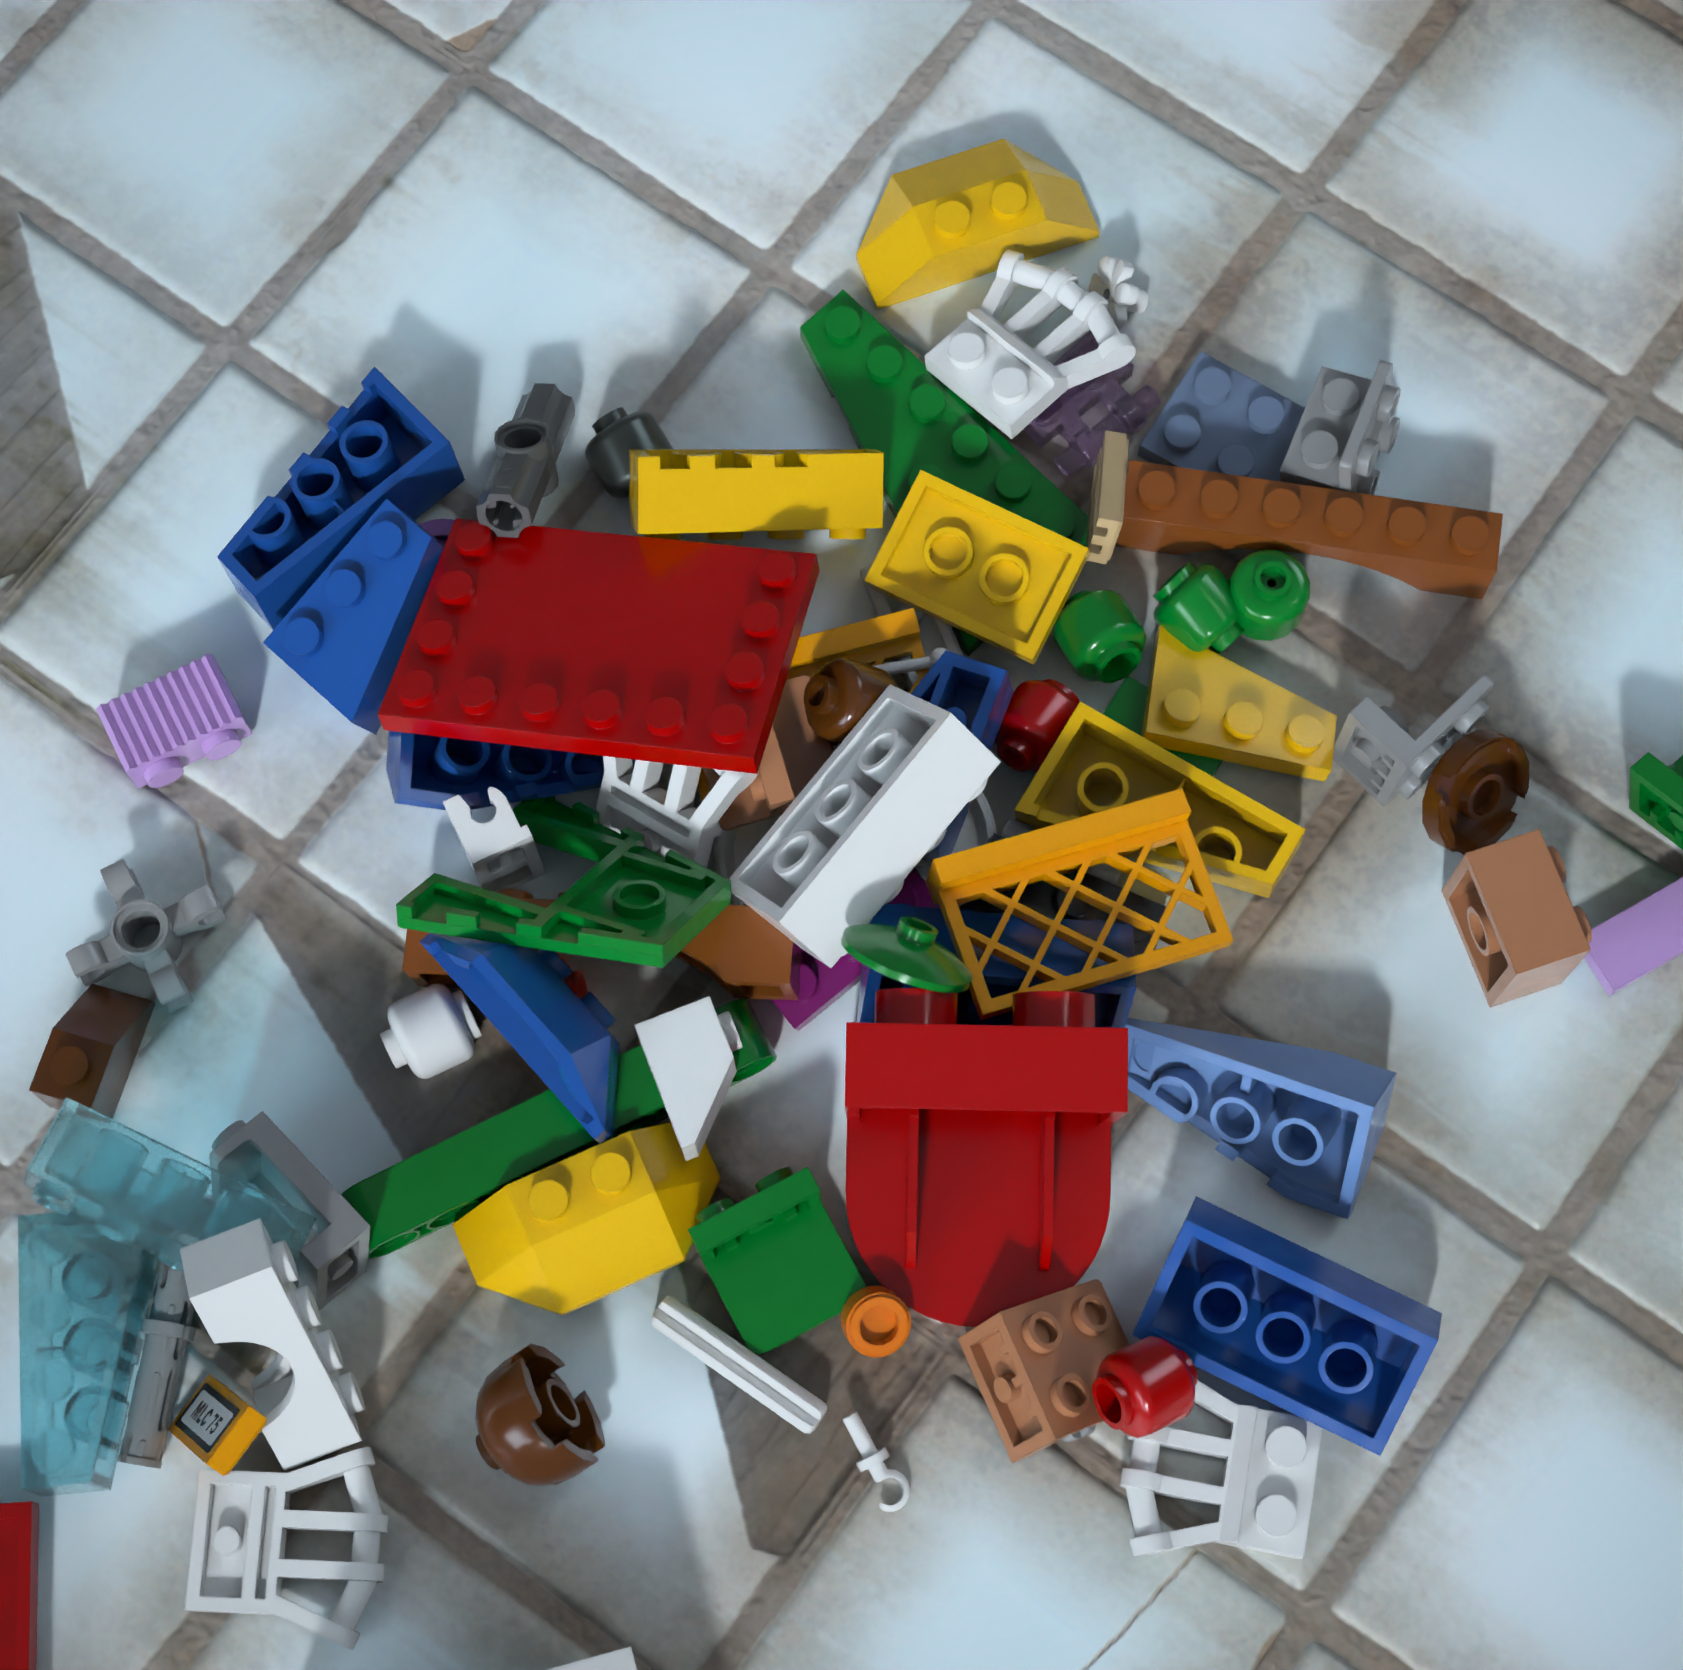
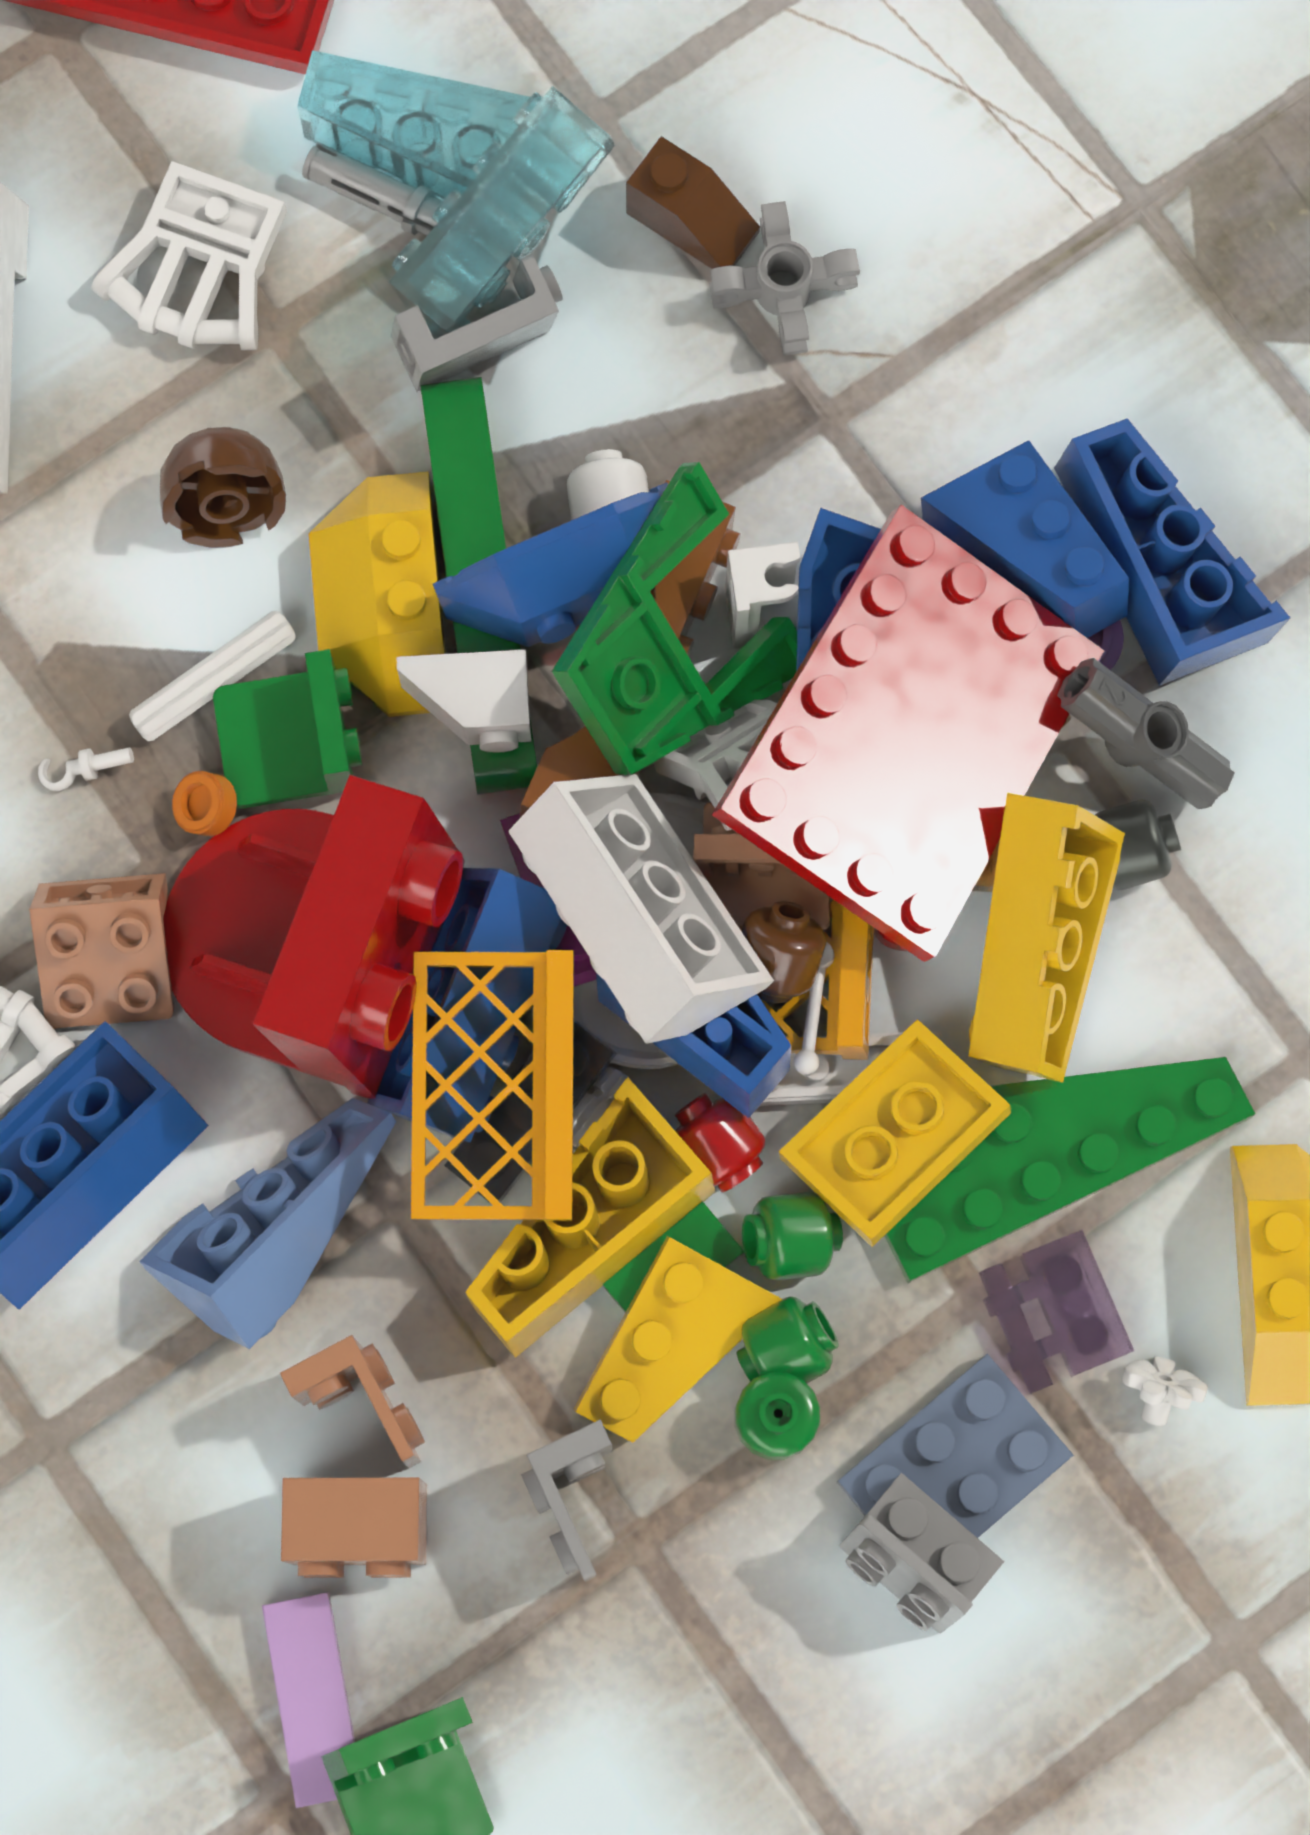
camera: 105 degrees right, 5 degrees up
(174, 723) = (984, 353): lavender brick -> none
(217, 1425) = (311, 220): tile -> none
(249, 1295) = (380, 247): white arch -> none
(908, 954) = (482, 890): green dish -> none
(1002, 373) = (1109, 1230): white plate -> none
(1107, 497) = (931, 1290): tan tile -> none
(1145, 1387) = (45, 1004): red head -> none
(1392, 988) = (327, 1379): none -> nougat bracket
(1410, 540) = (836, 1485): dark orange arch -> none
(1474, 791) = (498, 1538): reddish brown tile -> none

